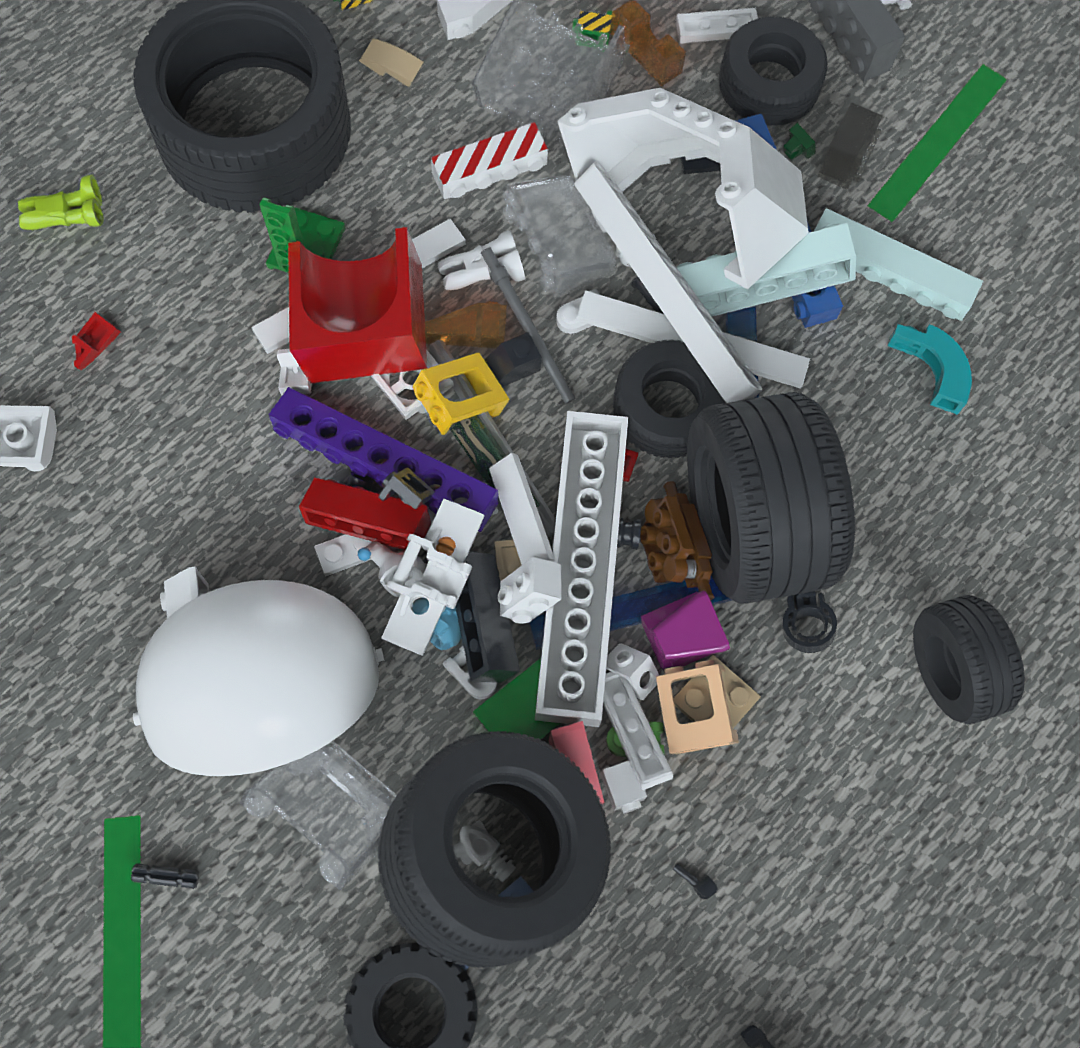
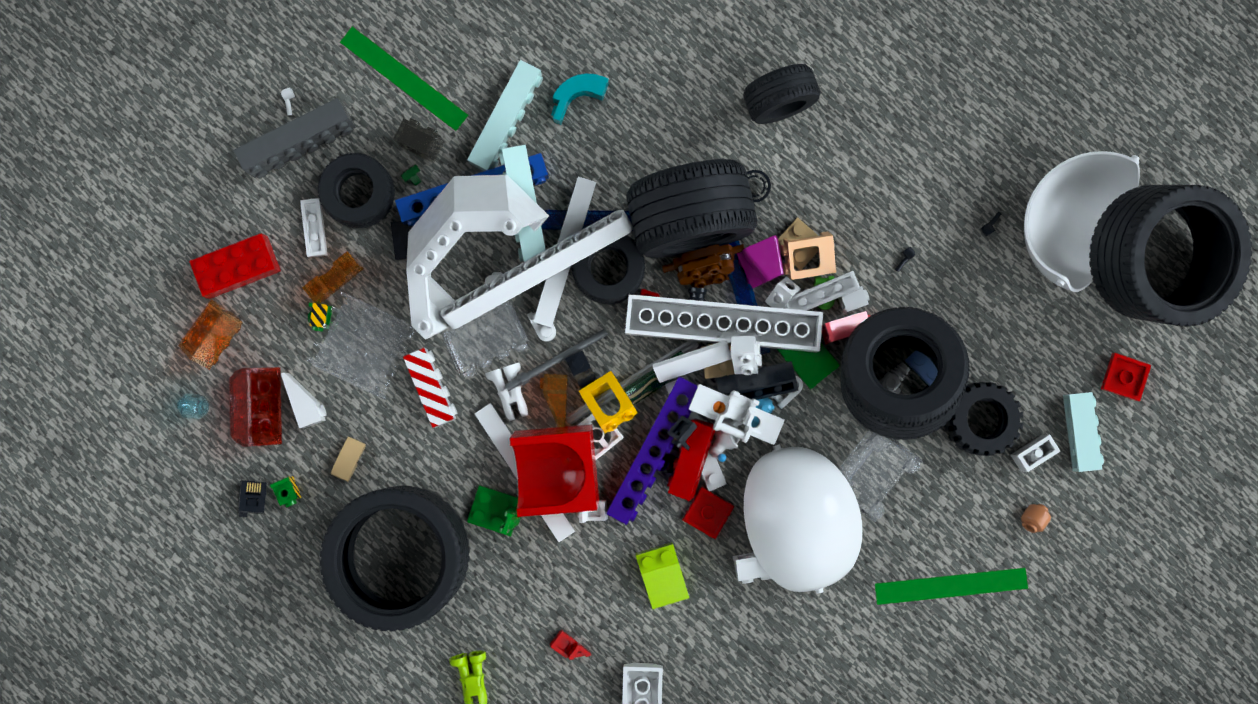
camera: 85 degrees left, 15 degrees up
(165, 876) = (910, 565): black axle -> none
(187, 472) = (662, 575): none -> lime slope
(279, 545) = (708, 513): none -> red tile

